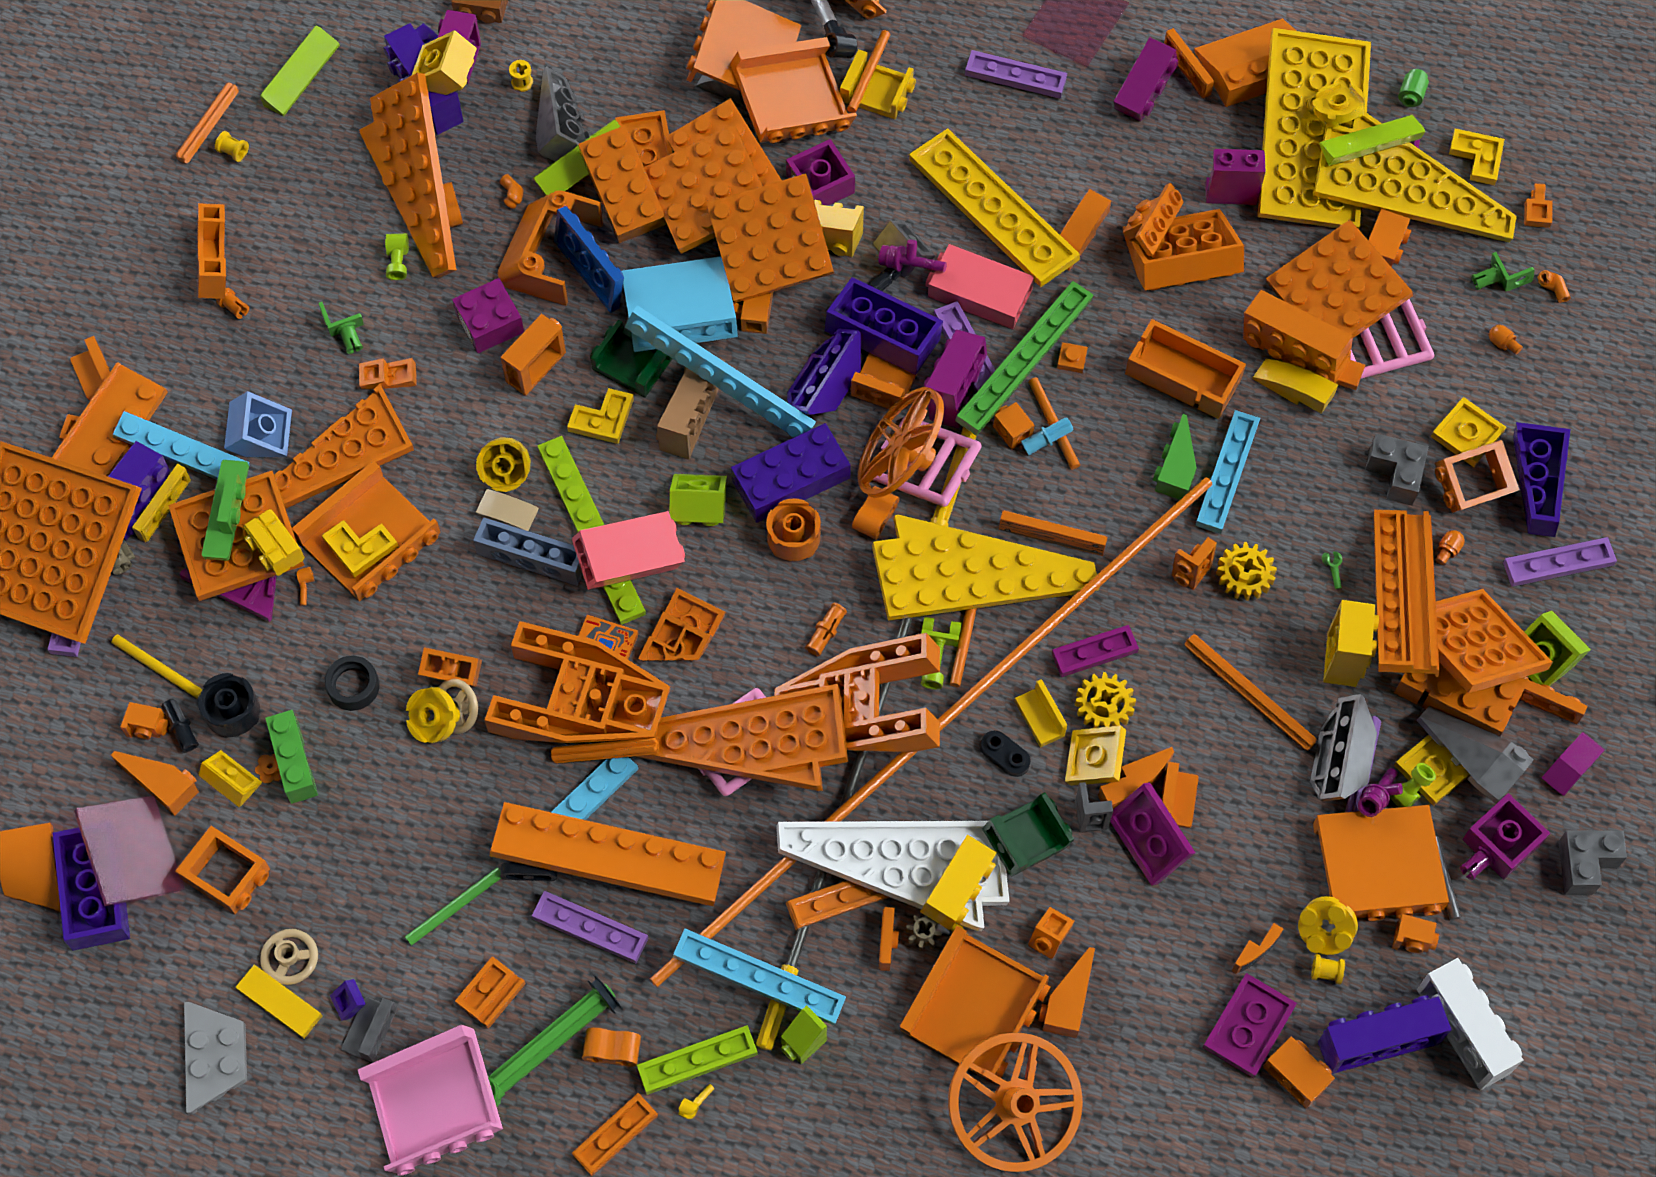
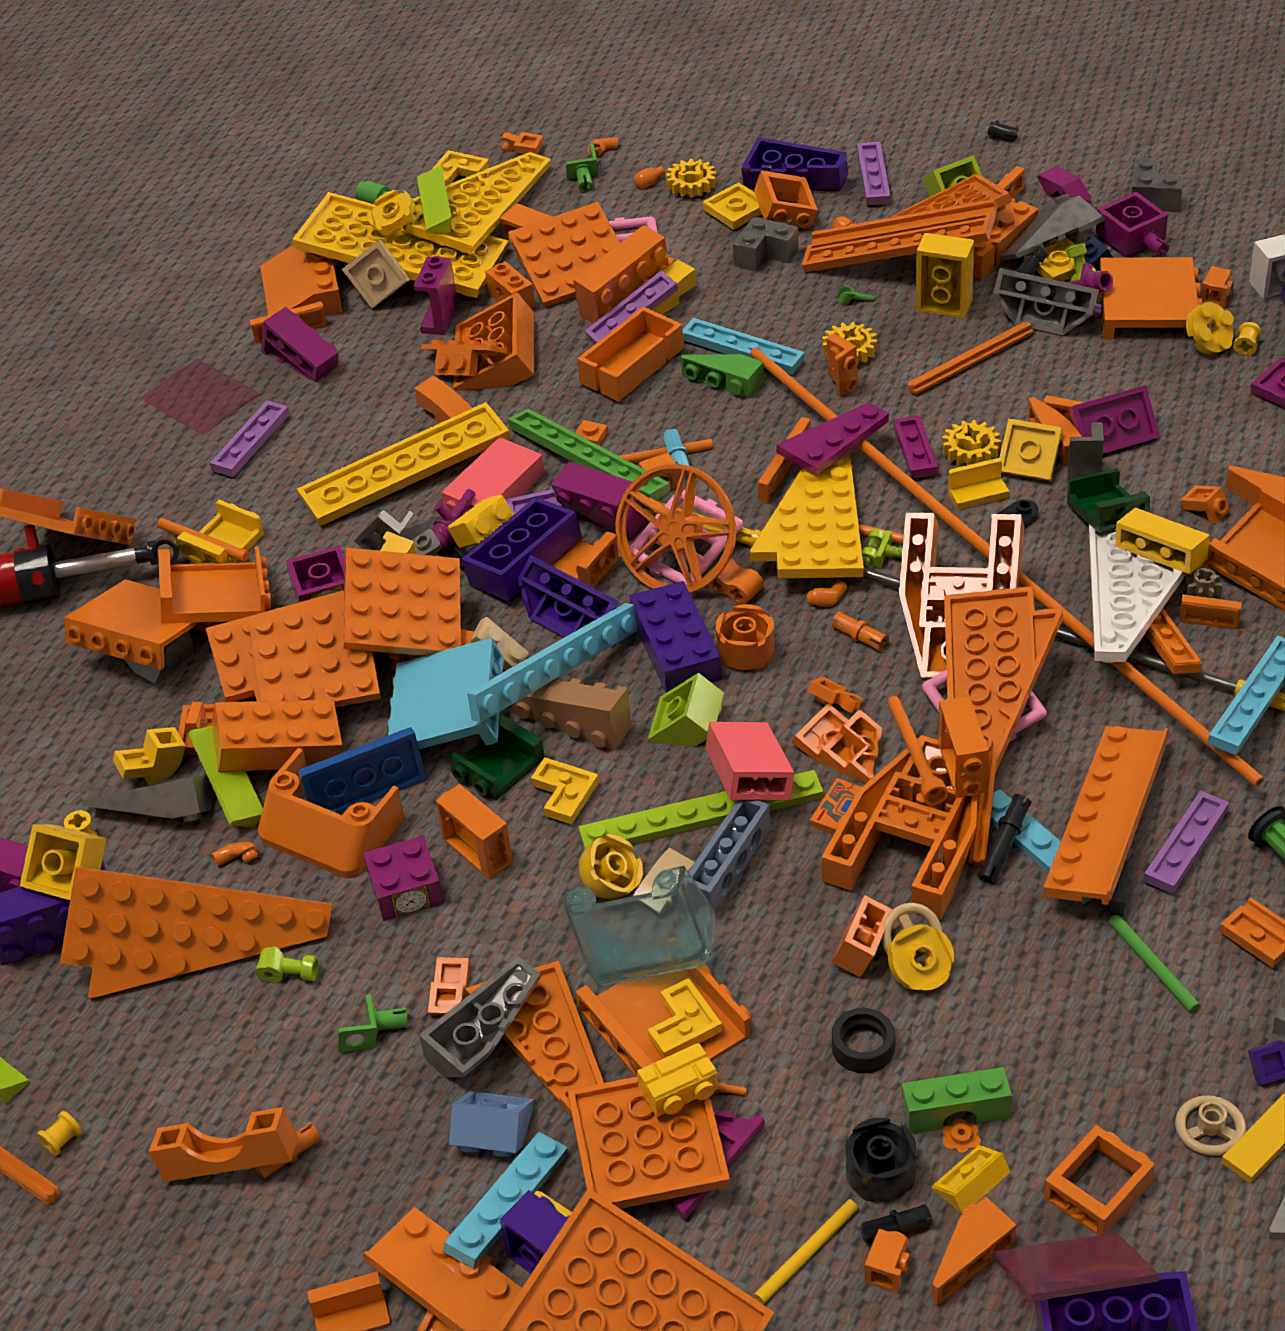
camera: 75 degrees left, 20 degrees down
(225, 510) = (617, 1128): bright green bracket -> none
(332, 395) = (479, 1021): none -> flat silver wedge
(420, 504) = (643, 932): none -> clear light blue windscreen
(580, 773) = (1009, 828): none -> black pin
(597, 698) = (932, 787): none -> orange piece
(599, 104) = (156, 760): none -> yellow brick
(630, 713) = (963, 747): none -> orange window
(634, 122) = (196, 717): none -> orange tile
(741, 613) = (831, 692): none -> orange plate
(756, 332) = (511, 650): none -> tan plate
(868, 249) = (427, 543): none -> flat silver bracket
(868, 595) = (827, 597): none -> orange arm
(882, 207) = (372, 535): none -> flat silver panel
(904, 282) = (480, 521): none -> yellow brick
(1071, 567) = (831, 440): none -> magenta wing
(1253, 953) = (1231, 376): orange slope -> none
(1256, 117) = (376, 274): none -> tan tile
(1257, 358) = (648, 295): none -> medium lavender plate
(1275, 243) = (504, 281): none -> orange brick
(1406, 734) = (1032, 262): none -> black axle
(1445, 802) = (1095, 251): none -> dark blue bracket
(1507, 380) = (691, 178): none -> yellow gear

